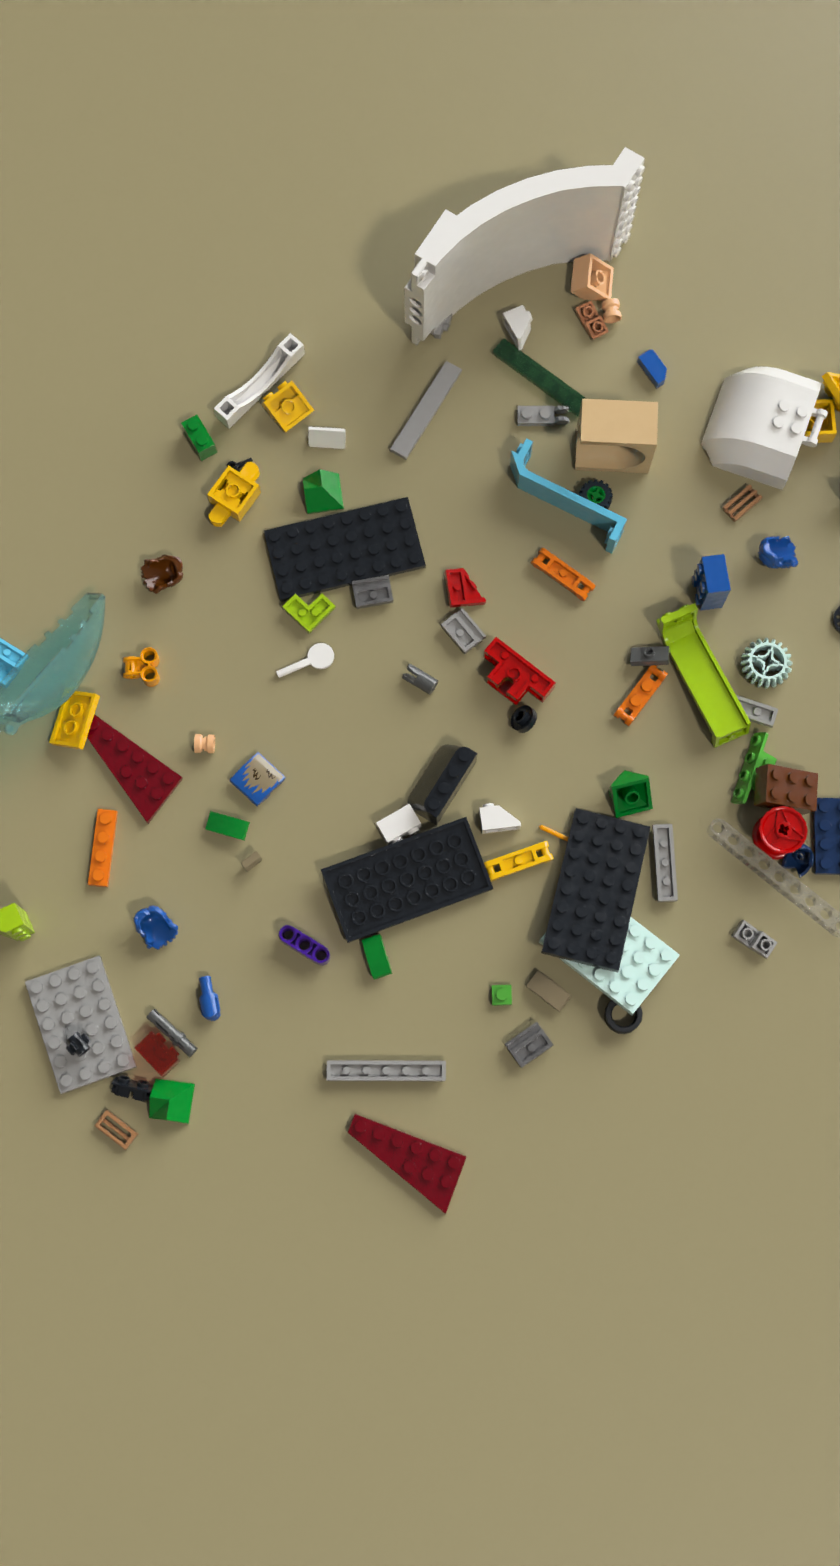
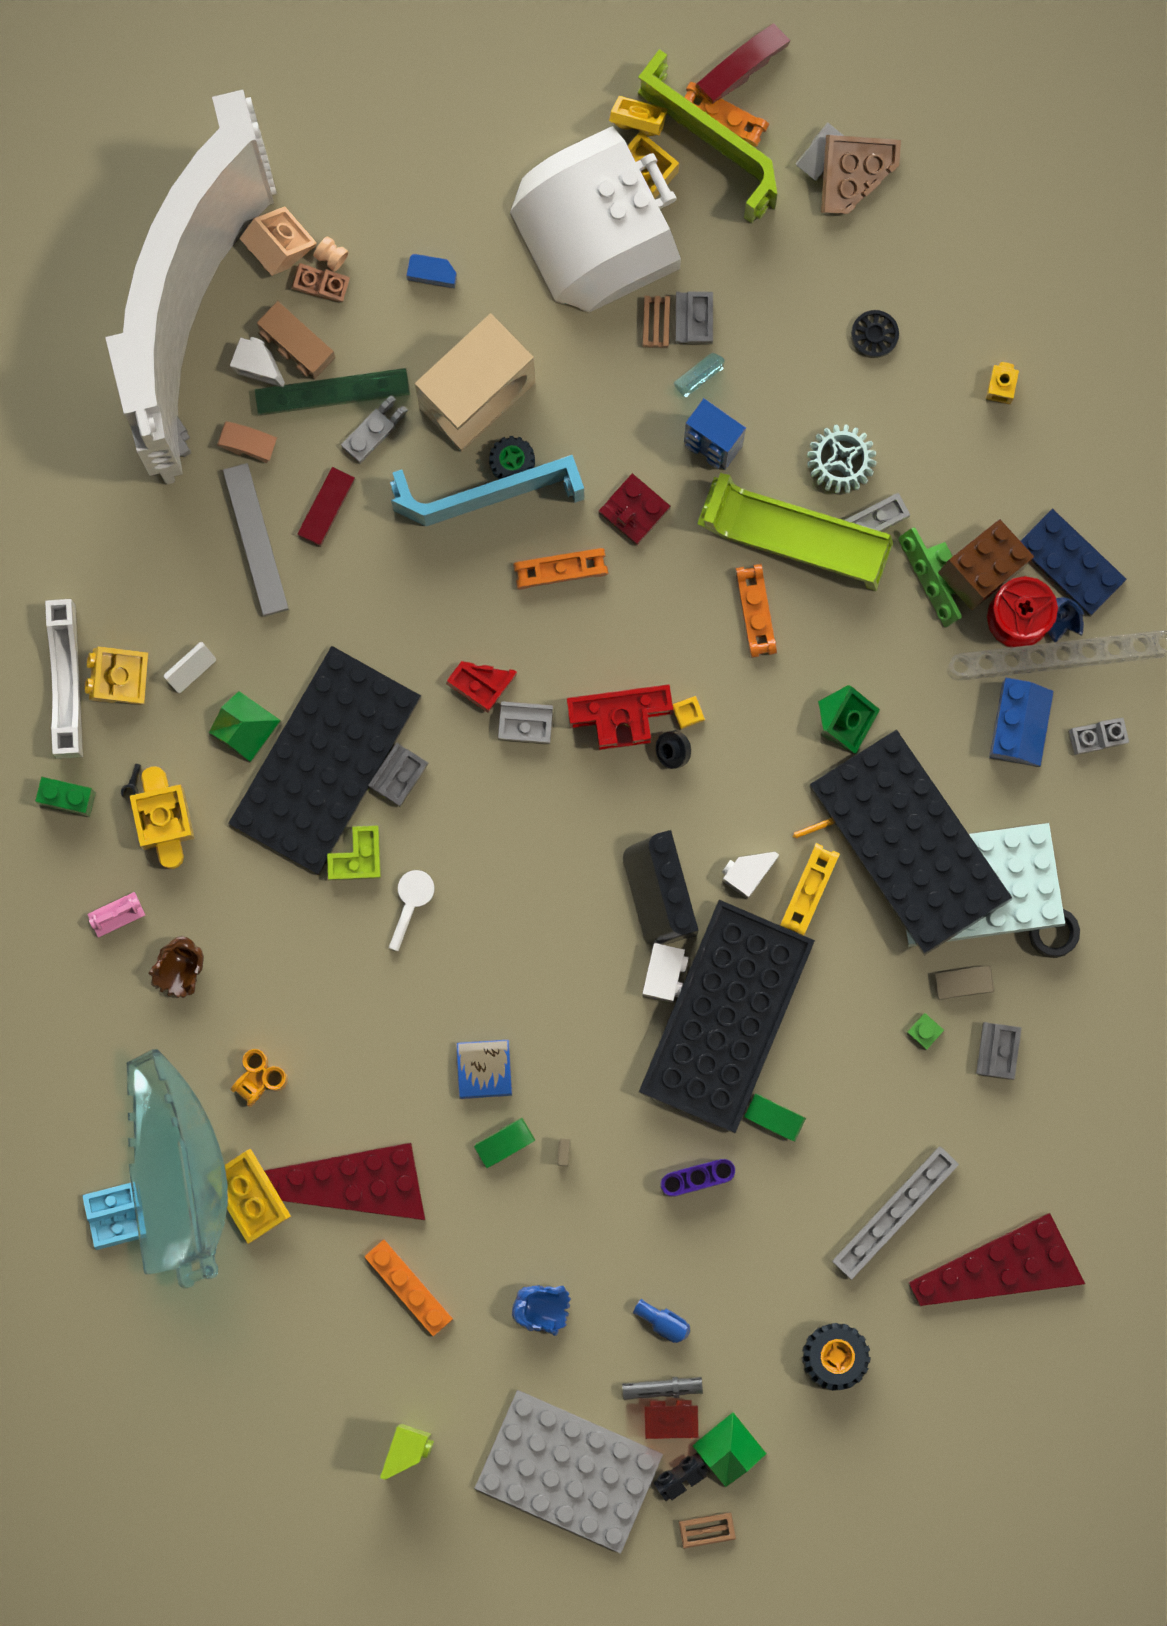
camera: 45 degrees left, 5 degrees up
(78, 1044) = (591, 1491): black gear -> none
(161, 519) = (116, 914): none -> bright pink hinge
(206, 743) = (399, 1087): light nougat wheel -> none
(275, 1111) = (836, 1356): none -> black wheel
(423, 681) = (540, 810): dark grey hinge -> none
(473, 358) = (246, 440): none -> nougat slope
(478, 428) = (326, 506): none -> dark red tile
(548, 334) = (295, 341): none -> medium nougat brick
(551, 710) = (688, 712): none -> yellow tile
(632, 583) = (634, 509): none -> dark red hinge
(650, 656) = (727, 565): dark grey plate -> none
(664, 863) = (945, 750): light grey plate -> none
(720, 890) = (1021, 722): none -> blue slope
(737, 550) = (699, 374): none -> clear light blue slope
(764, 519) = (694, 317): none -> flat silver plate
(777, 553) = (742, 338): blue hair -> none

